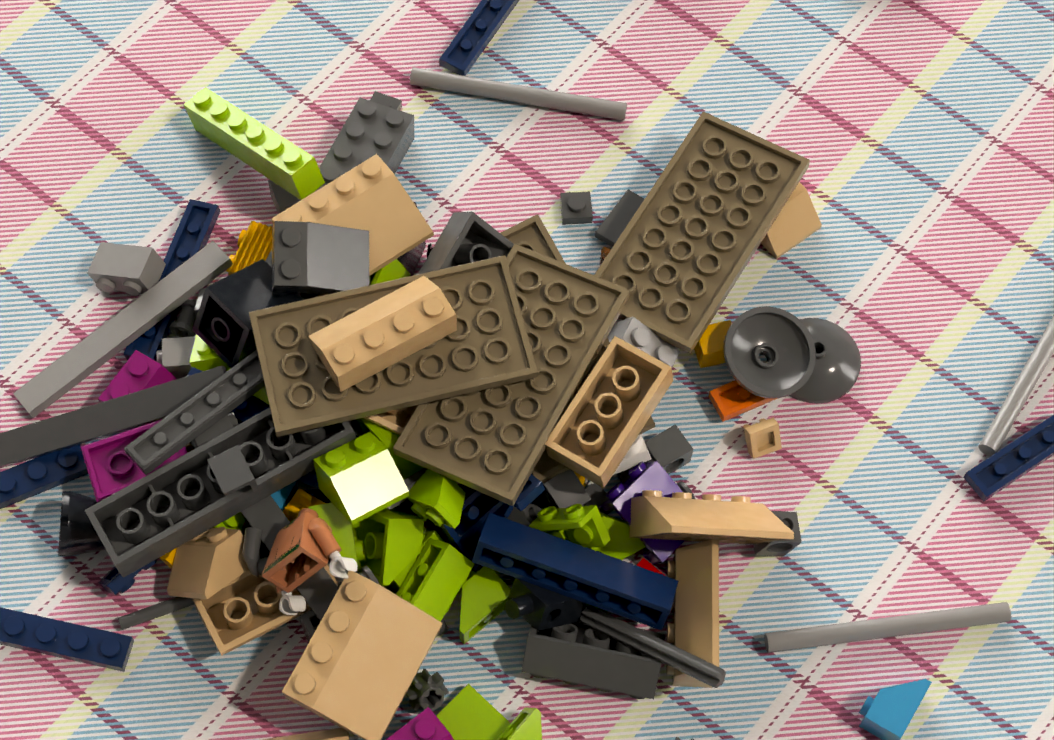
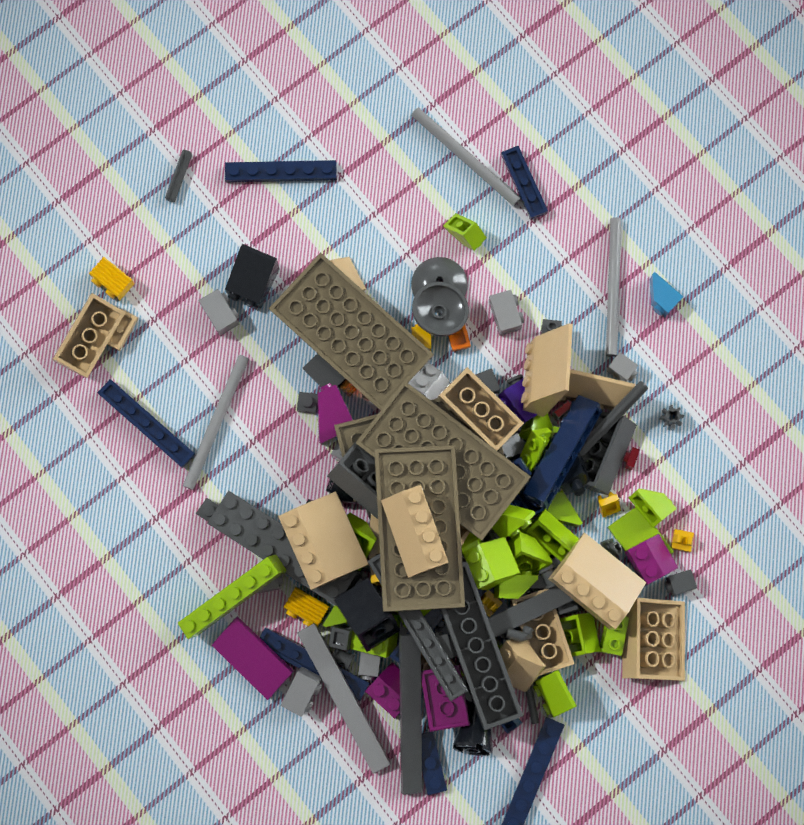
camera: 75 degrees left, 15 degrees up
(169, 198) = (252, 658): none -> magenta tile
(171, 639) = (554, 694): none -> lime slope
(232, 471) = (485, 636): dark grey panel -> none
(270, 660) = (580, 634): none -> lime slope
(279, 717) = (613, 639): none -> lime bracket
(299, 553) = (533, 603): nougat torso -> none
(318, 258) = (348, 564): slope -> none
(505, 678) = (609, 505): none -> yellow tile
(573, 222) = (331, 411): none -> magenta slope
(594, 701) = (630, 458): none -> dark red plate
(684, 66) = (219, 312): none -> light grey brick
(747, 662) = (622, 368): none -> light grey brick
(750, 93) = (252, 276): none -> black slope
(762, 437) = (487, 325): tan tile -> none
(794, 461) = (506, 312): none -> light grey brick
(910, 379) = (465, 231): none -> lime slope
(928, 112) = (281, 171): none -> dark blue plate

